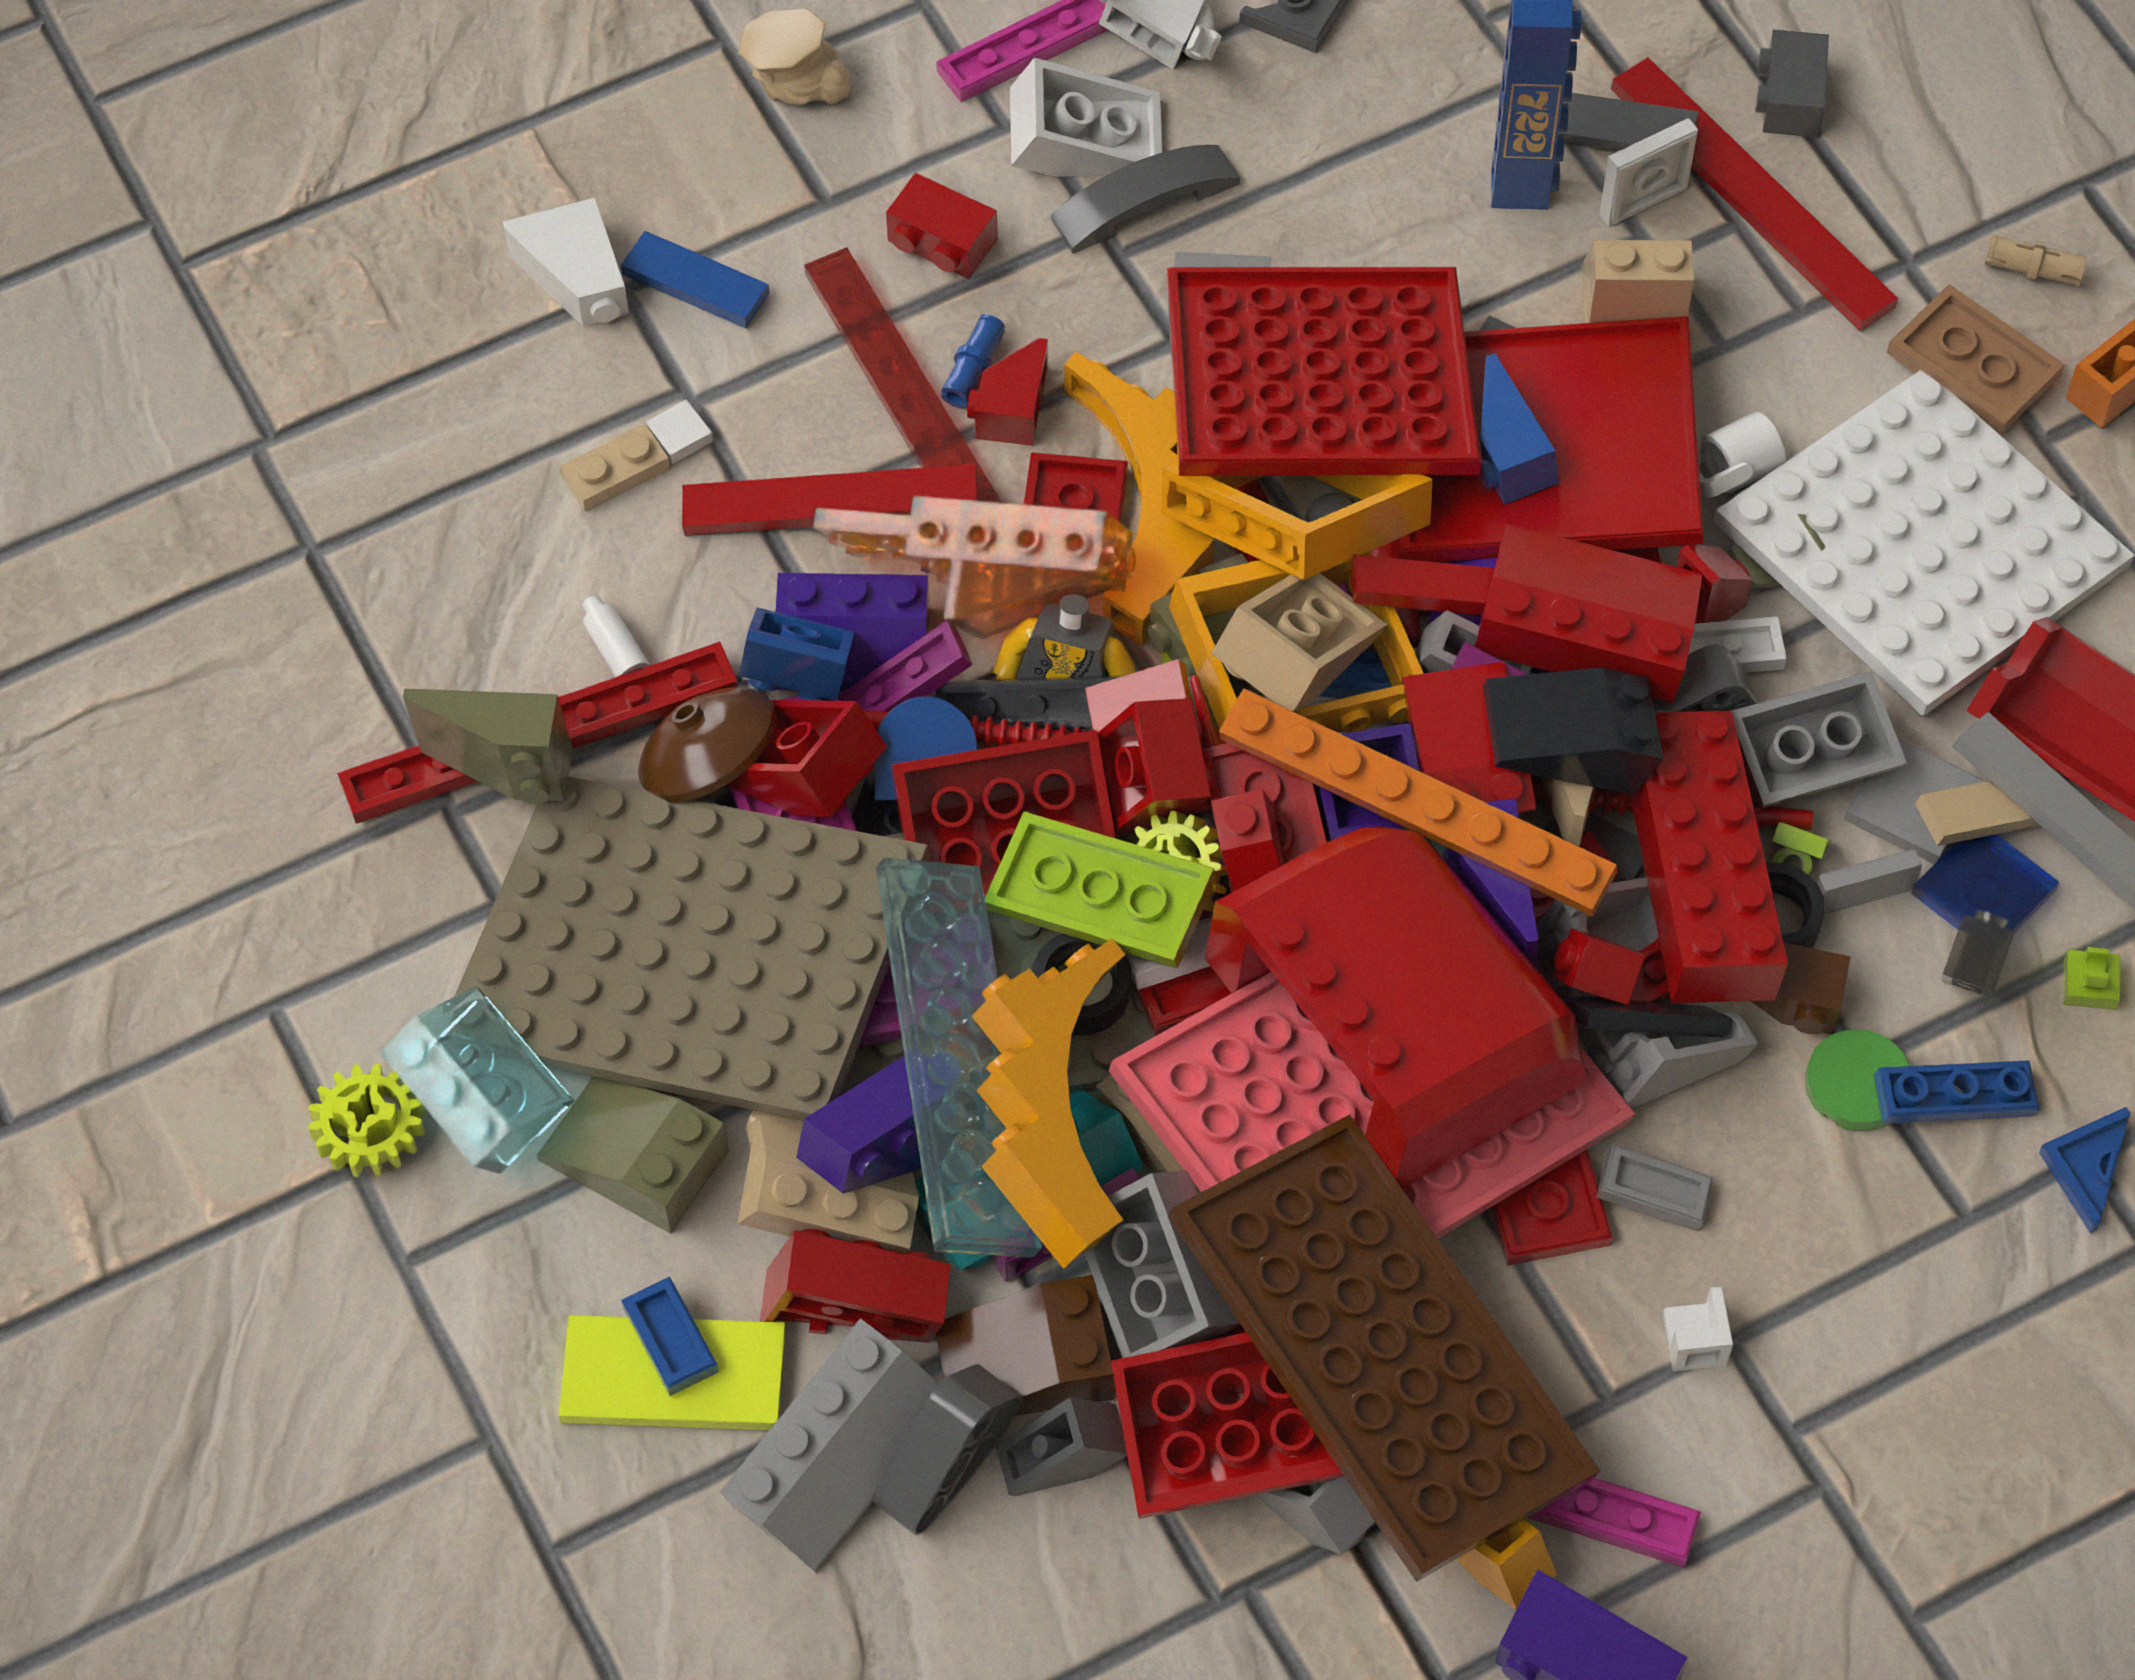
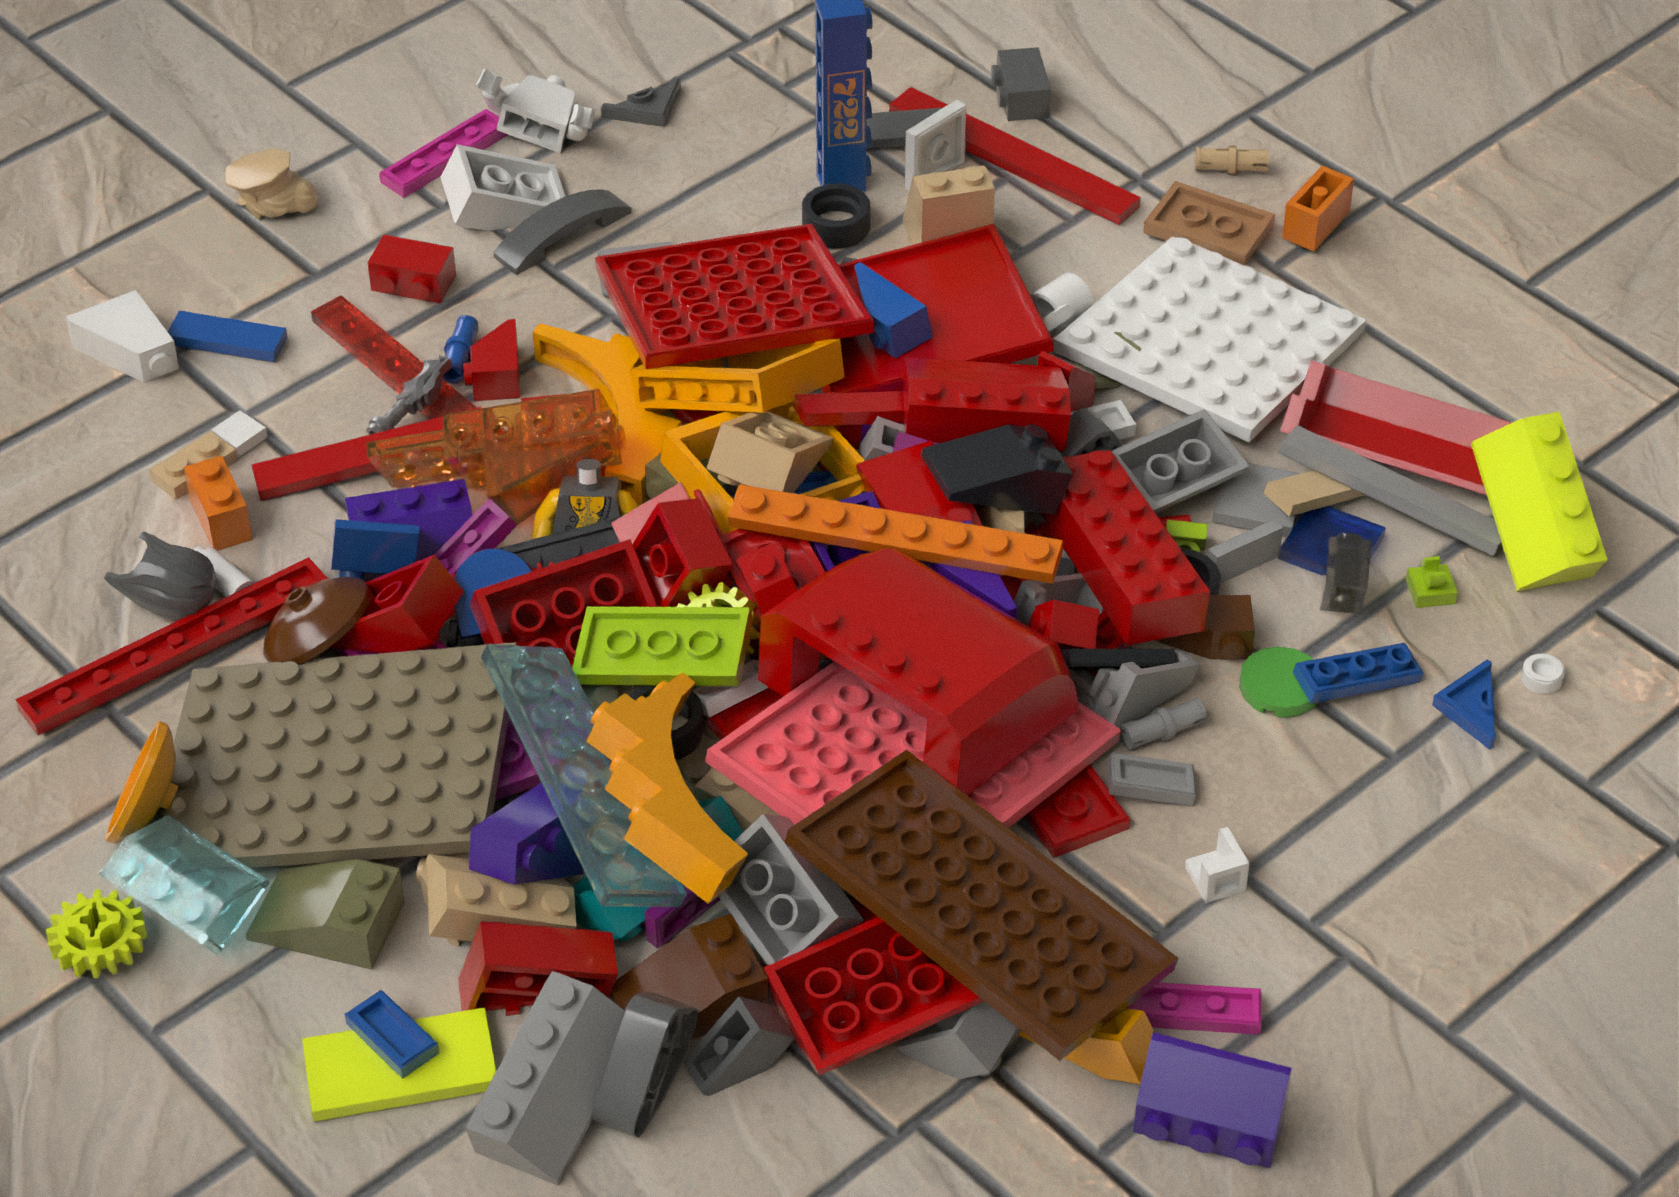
camera: 15 degrees left, 15 degrees down
(456, 941) = (146, 787): none -> light orange dish
(496, 738) = (142, 639): olive slope -> none
(546, 644) = (168, 579): none -> dark grey hair
(629, 537) = (218, 503): none -> orange brick
(905, 423) = (417, 394): none -> flat silver piece
(1502, 220) = (838, 198): none -> black tyre
(1692, 1110) = (1163, 723): none -> light grey pin

